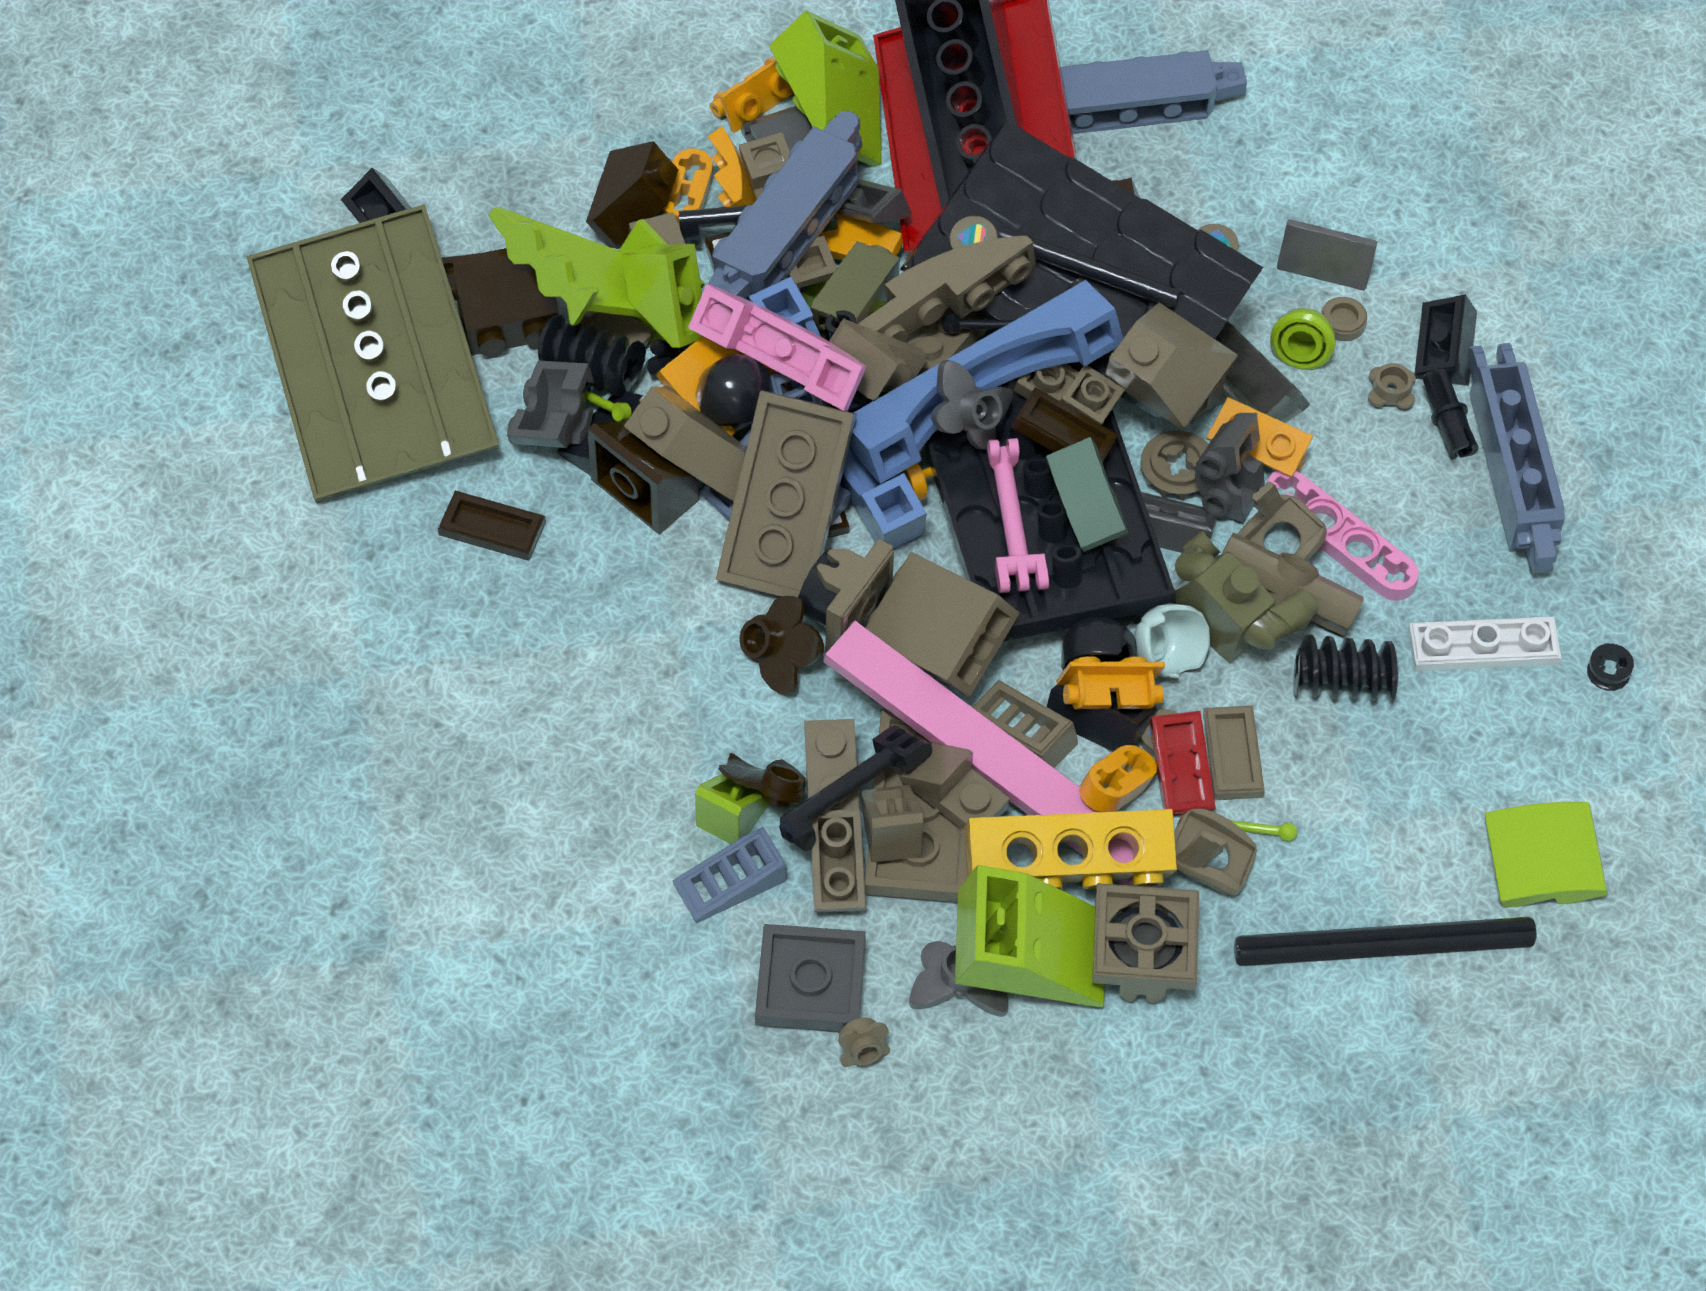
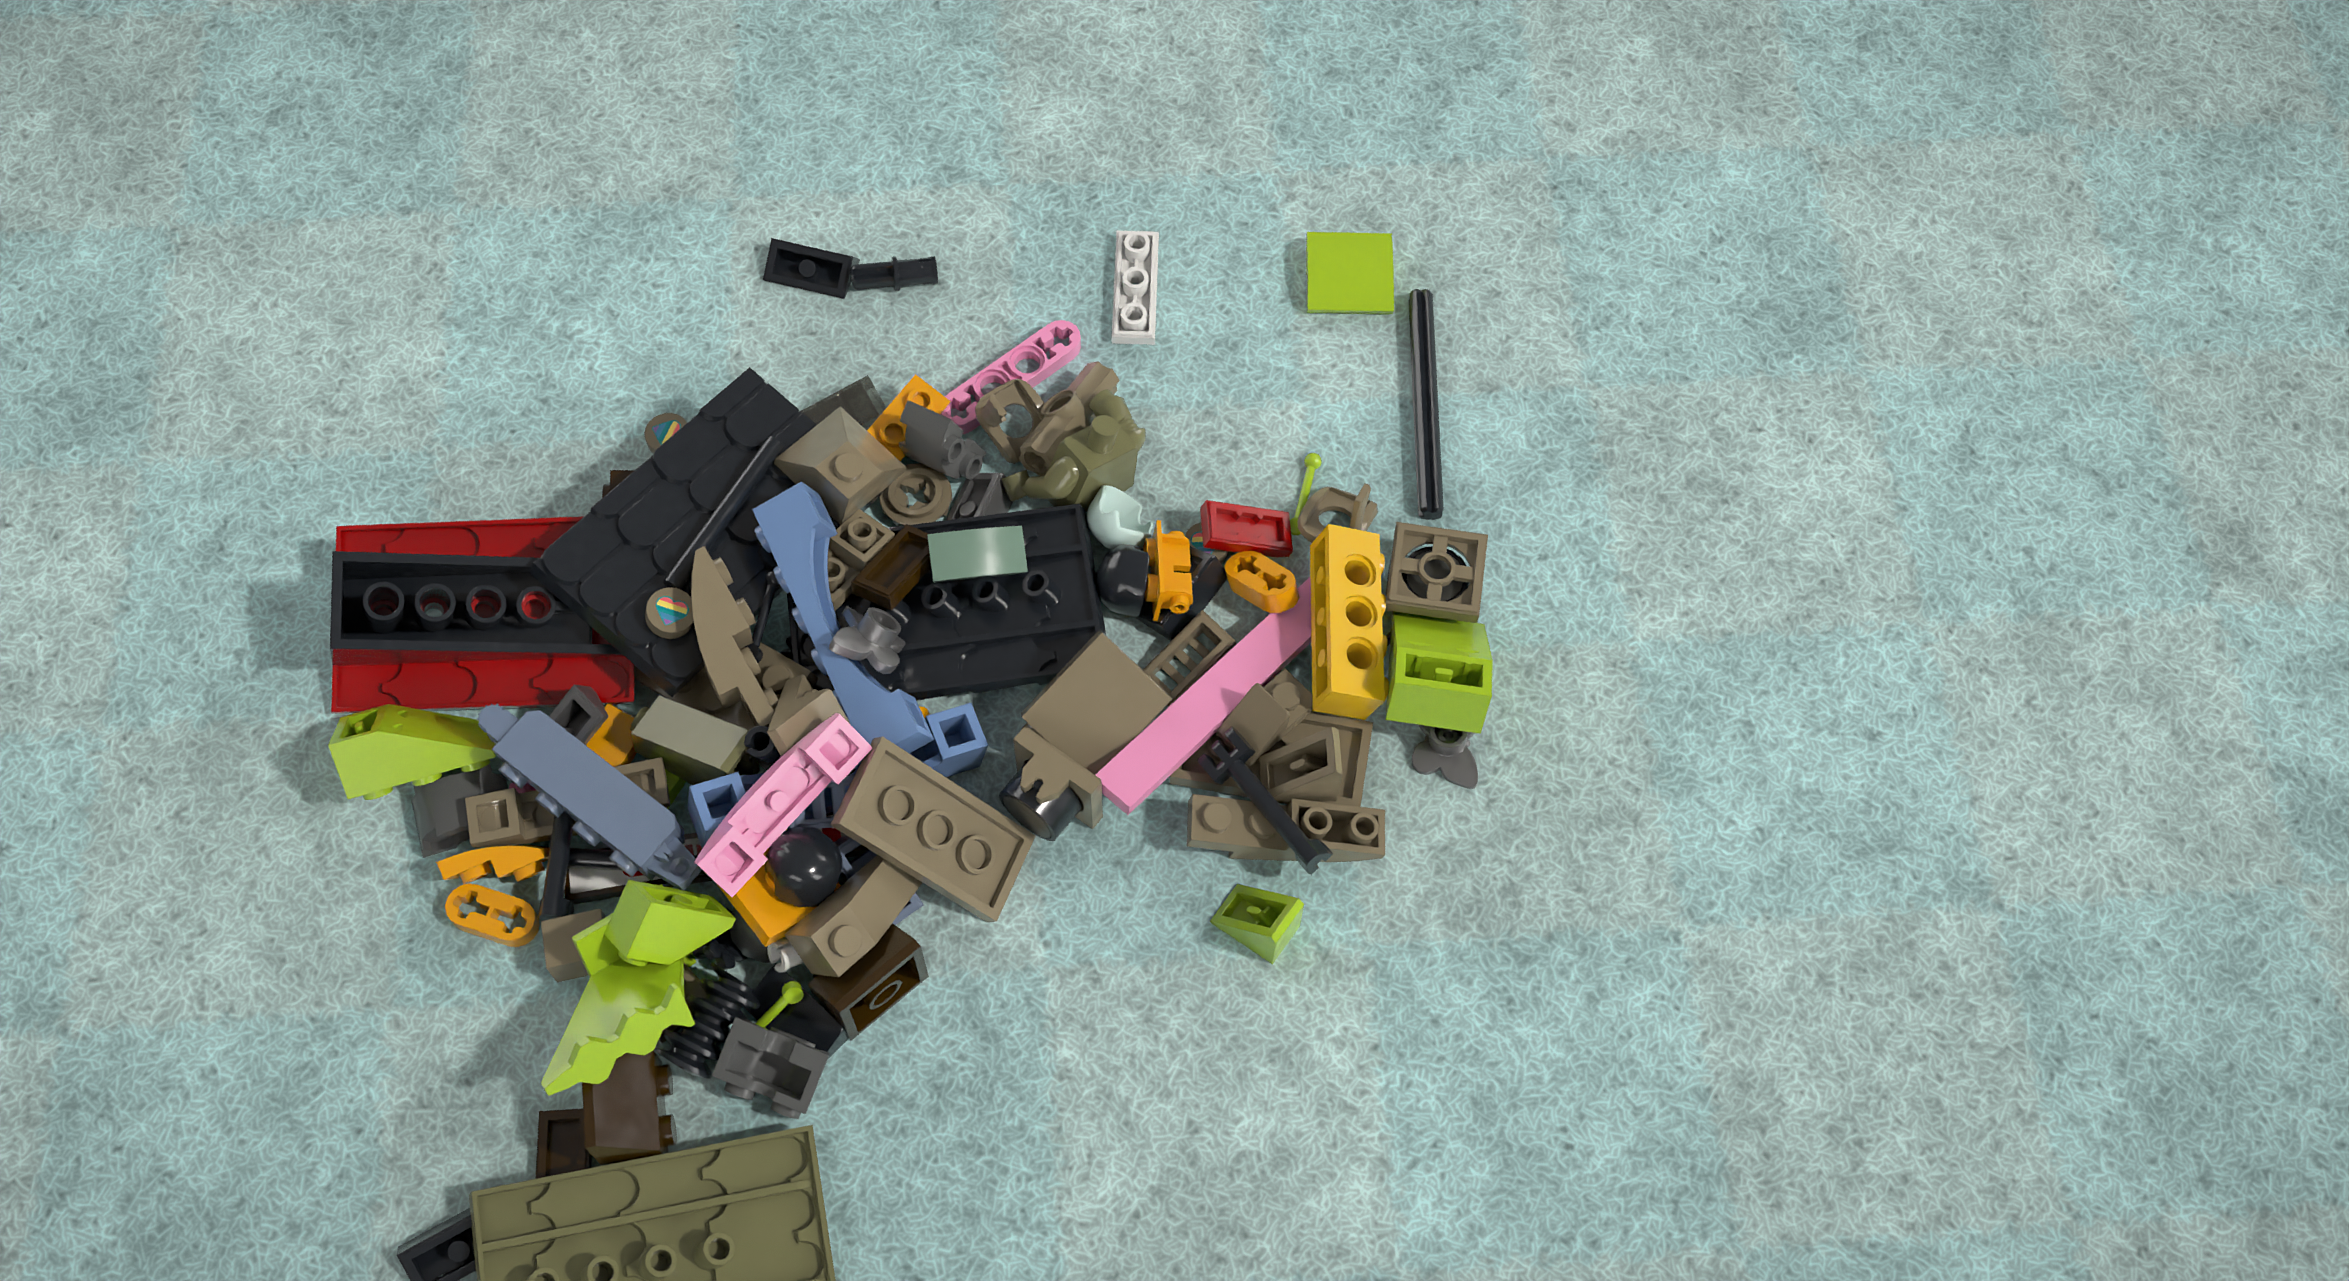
camera: 85 degrees left, 5 degrees up
(491, 525) = (897, 1146): dark brown tile -> none
(631, 188) = (495, 966): dark brown slope -> none
(739, 890) = (1344, 907): sand blue slope -> none
(751, 97) = (391, 846): light orange hinge -> none
(778, 783) = (1242, 884): dark brown plate -> none
(781, 643) = (1092, 855): dark brown plate -> none
(809, 977) = (1451, 868): dark grey plate -> none
(863, 1042) = (1521, 826): dark tan plate -> none
(1018, 562) = (1046, 625): bright pink hinge -> none
(1148, 90) = (471, 456): sand blue hinge -> none
(1233, 752) = (1229, 486): dark tan tile -> none
(1303, 339) = (794, 371): lime brick -> none
(1327, 254) = (701, 342): flat silver slope -> none
(1346, 317) = (771, 343): dark tan tile -> none
(1346, 667) = (1161, 387): black piece -> none
(1393, 375) = (856, 304): dark tan plate -> none
(1517, 455) = (951, 223): sand blue hinge -> none
(1615, 653) = (1165, 188): black bush -> none

